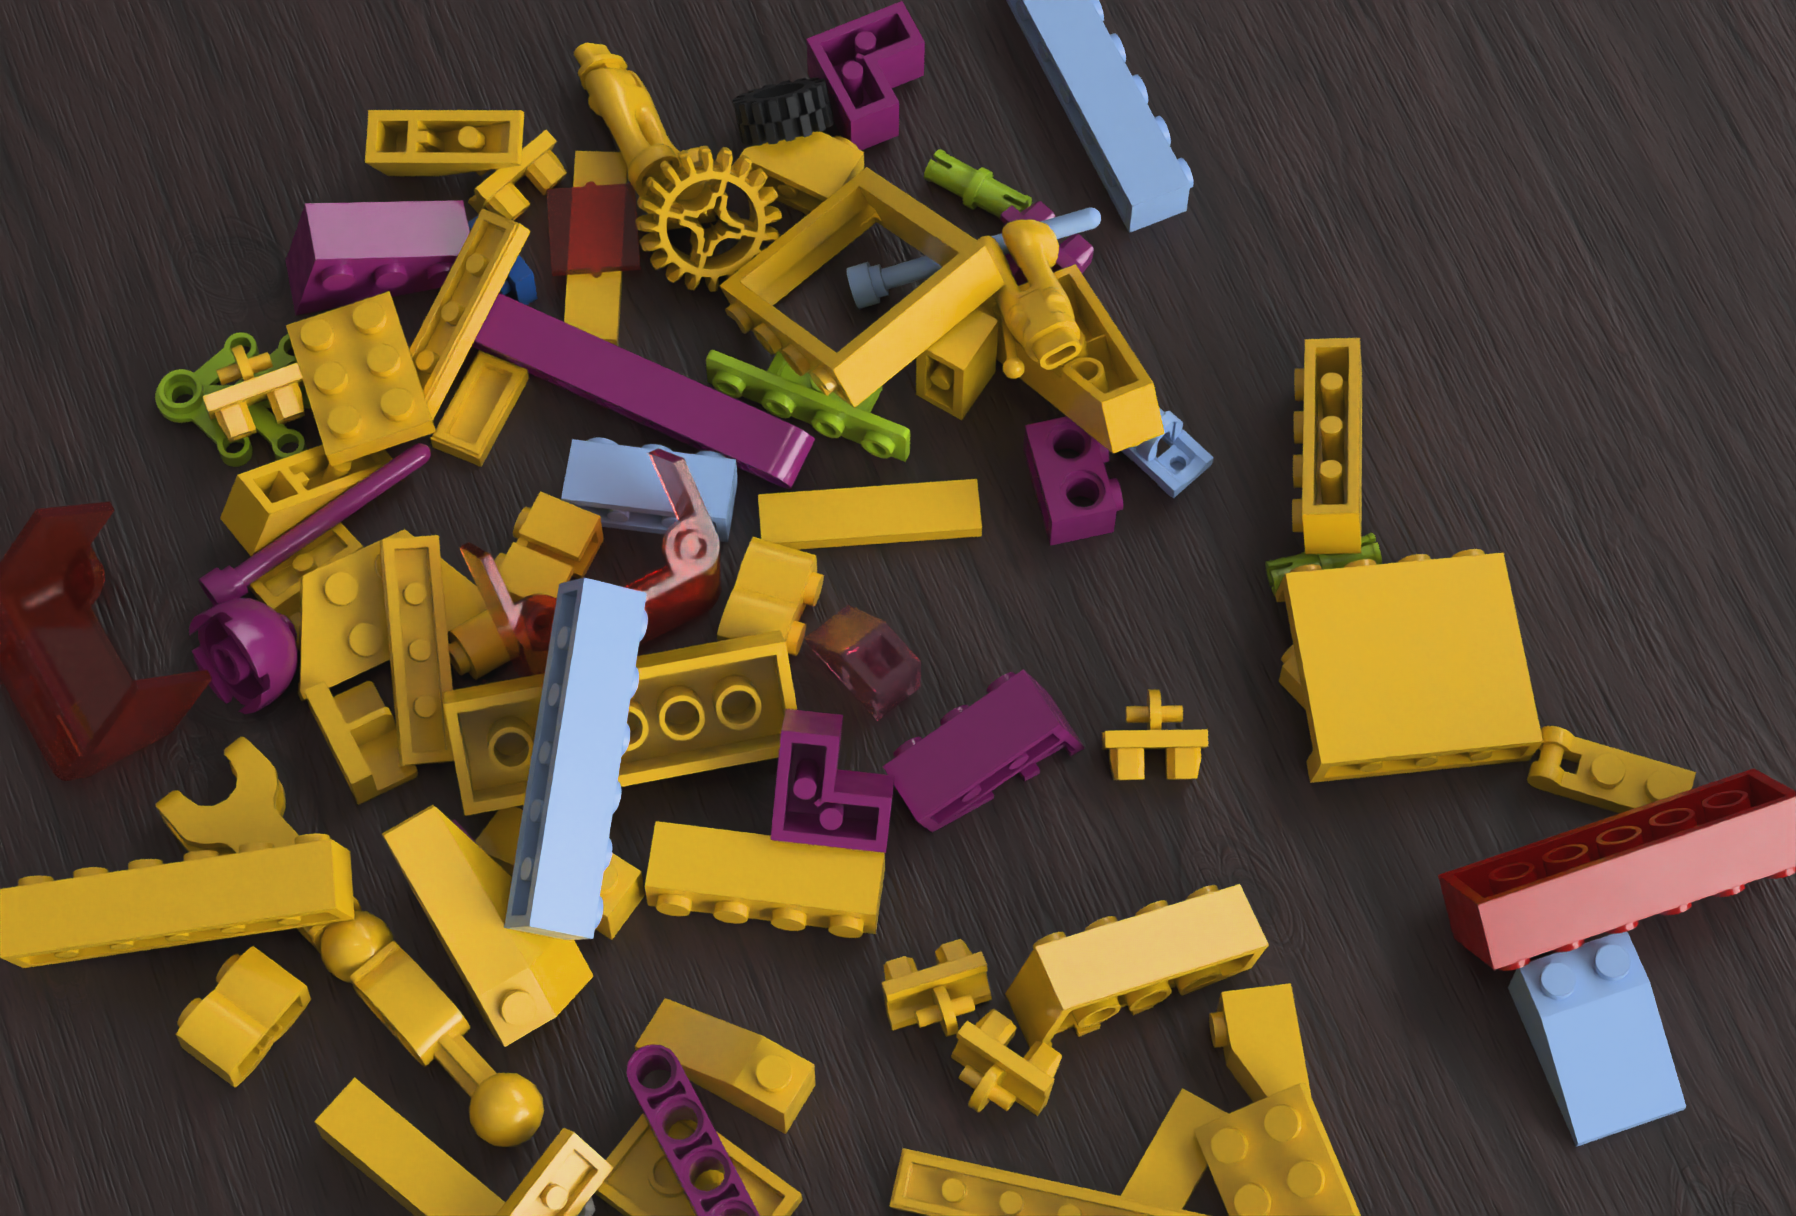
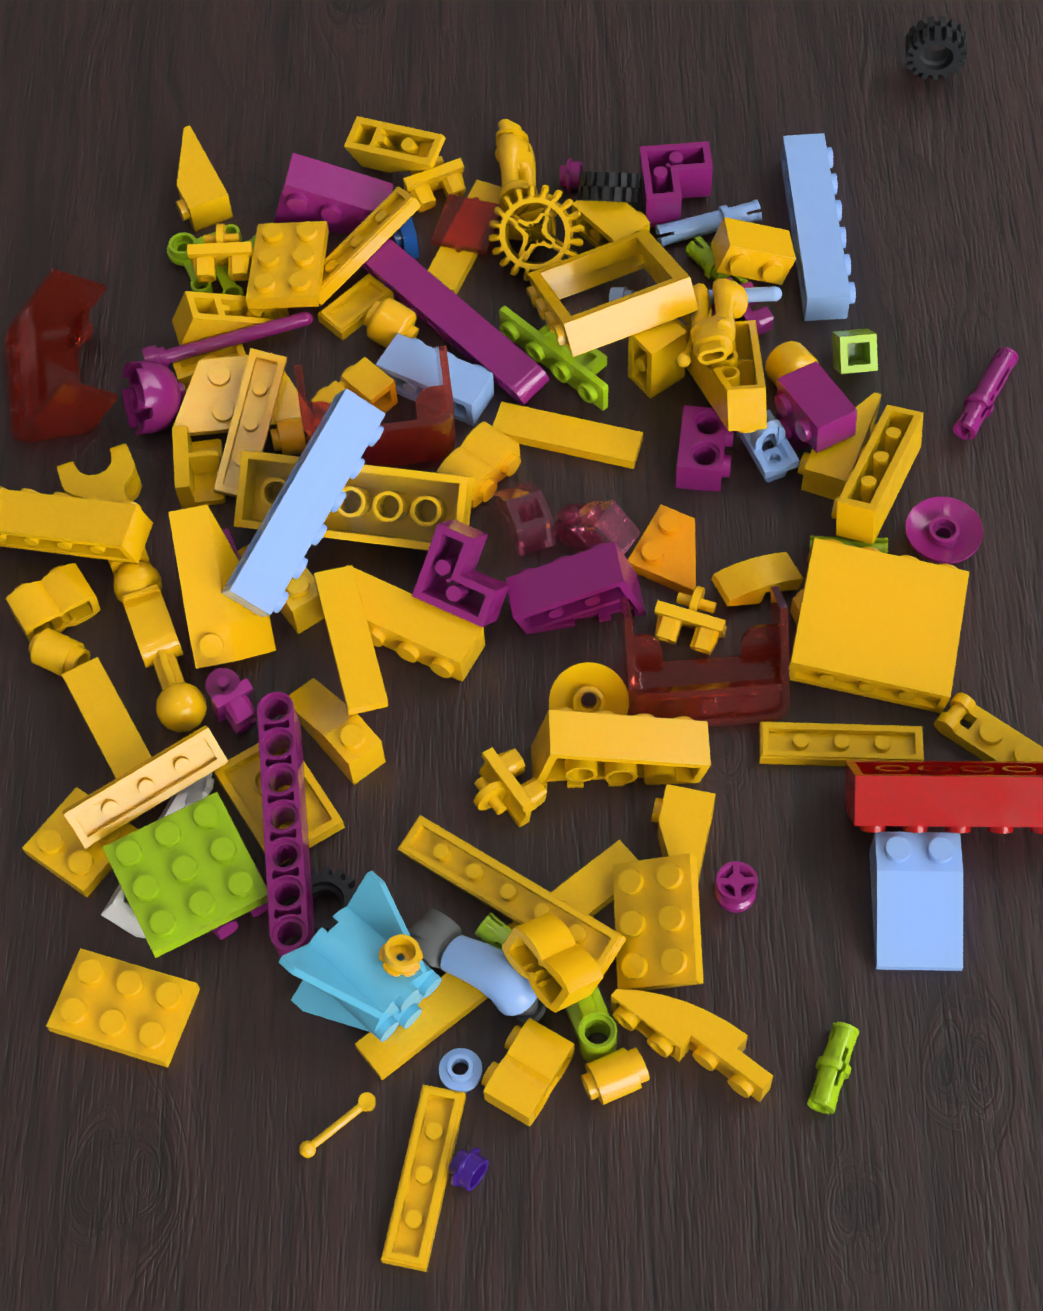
camera: 25 degrees right, 5 degrees down
(172, 296) = (199, 187): none -> yellow slope
(286, 1088) = (57, 651): none -> yellow brick
(548, 422) = (388, 319): none -> yellow head
(576, 1074) = (231, 699): none -> magenta hips
(712, 102) = (570, 174): none -> magenta plate
(712, 933) = (350, 640): none -> yellow tile
(938, 991) = (484, 725): yellow hips -> none
(957, 111) = (706, 223): none -> light blue pin
(972, 646) = (595, 523): none -> clear pink slope
(1026, 153) = (753, 251): none -> yellow brick
(1081, 646) = (668, 551): none -> light orange wing
(1085, 879) = (589, 678): none -> yellow dish
(1148, 316) = (786, 359): none -> yellow head
(1212, 379) = (813, 409): none -> magenta brick
(1218, 648) = (750, 579): none -> yellow slope
(1223, 827) = (712, 689): none -> clear red windscreen
(1225, 266) = (854, 351): none -> lime brick
(1258, 431) = (827, 470): none -> yellow slope
(1366, 1089) = (736, 876): none -> magenta wheel
(1415, 851) = (834, 743): none -> yellow tile
(1418, 287) = (980, 403): none -> magenta pin
(1446, 476) = (948, 518): none -> magenta dish

